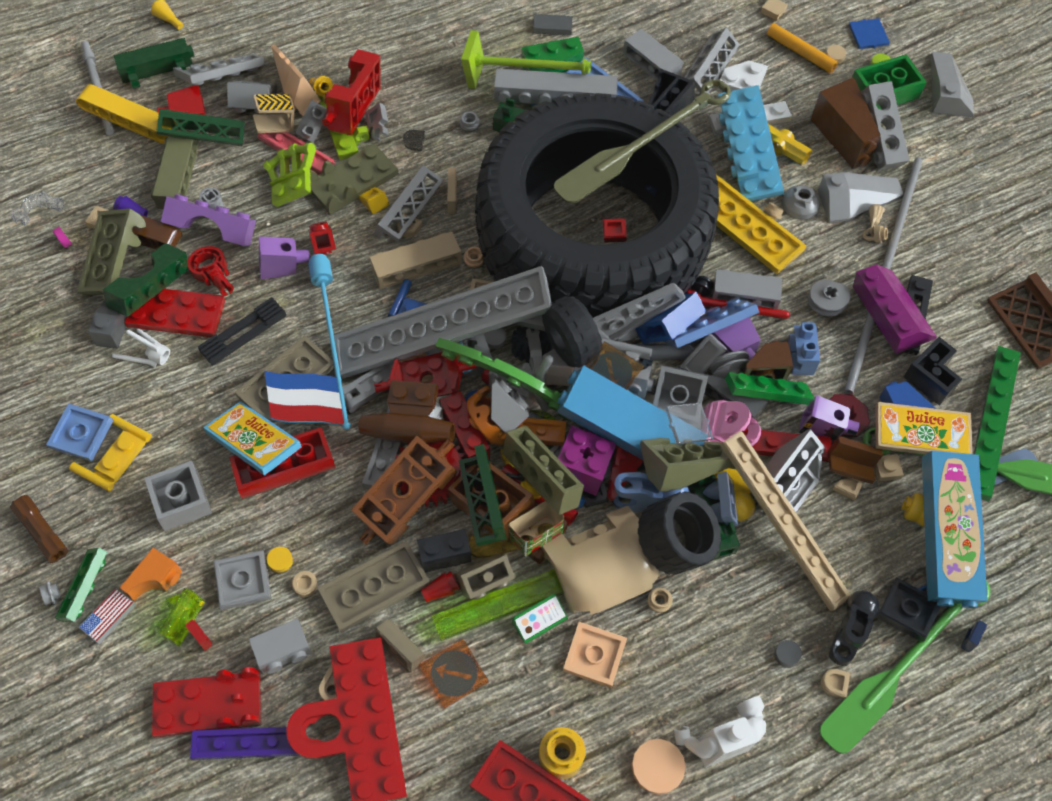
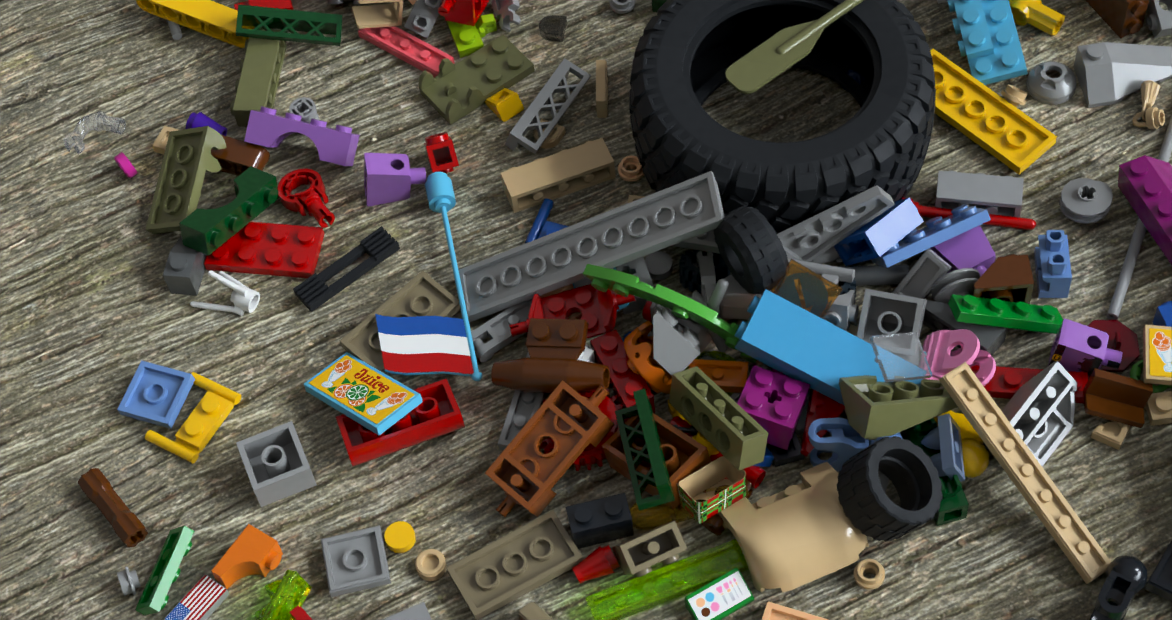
camera: 10 degrees right, 5 degrees down
(295, 183) = (403, 89): lime plate -> none
(614, 230) = (803, 125): red tile -> none
(703, 286) = (922, 192): black bush -> none

